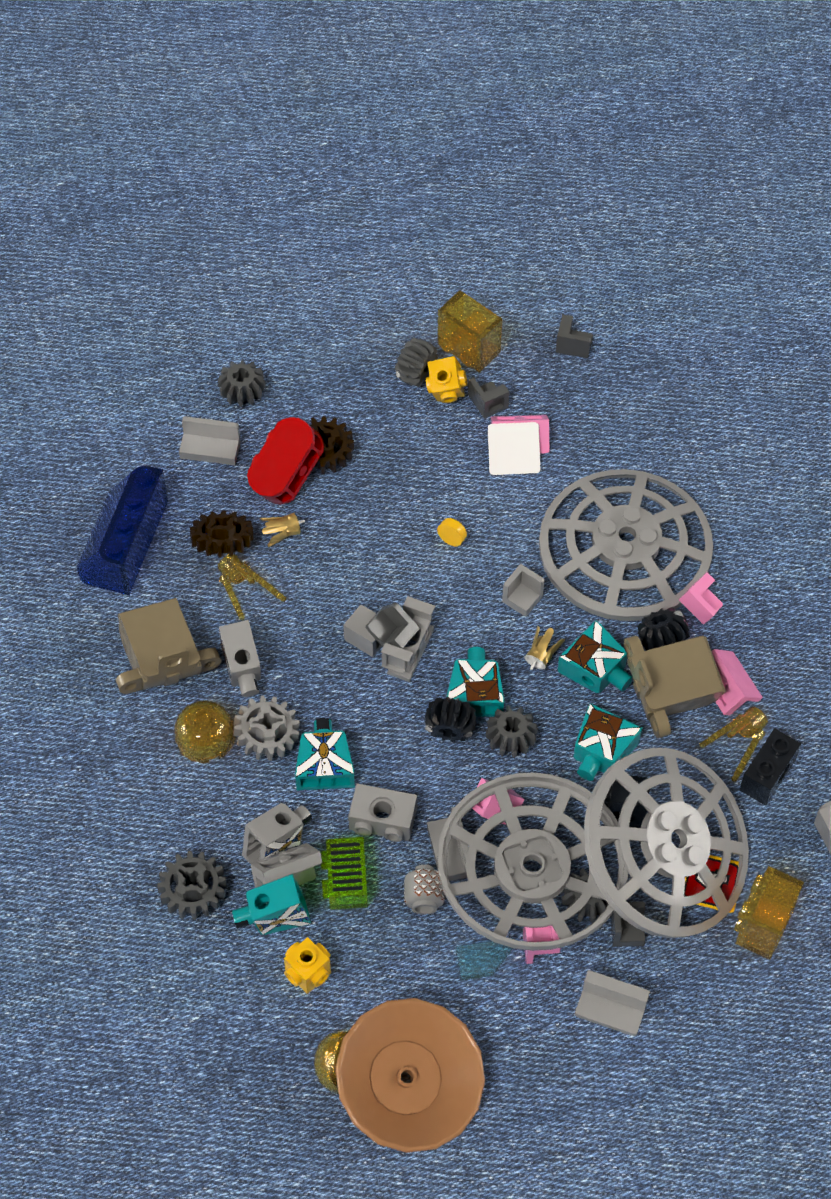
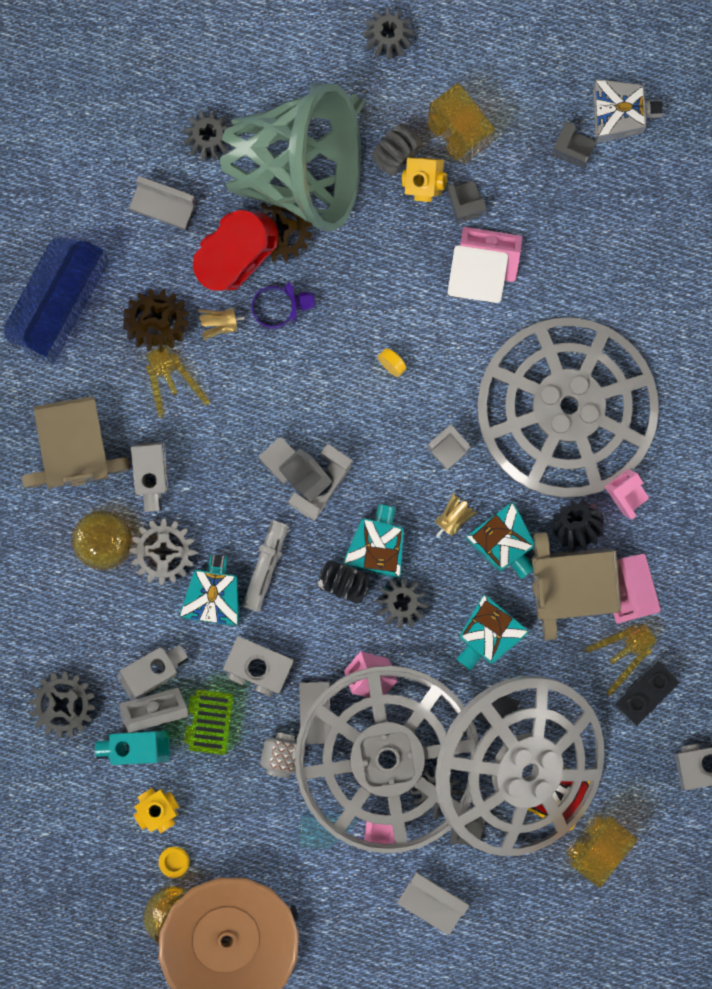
camera: 10 degrees right, 25 degrees up
(327, 362) = (291, 124): none -> sand green piece
(335, 1016) = (174, 862): none -> yellow tile
(356, 497) = (304, 301): none -> dark purple piece
(371, 713) = (265, 566): none -> light grey pin
(387, 281) = (388, 45): none -> dark grey gear
(609, 303) = (621, 110): none -> torso

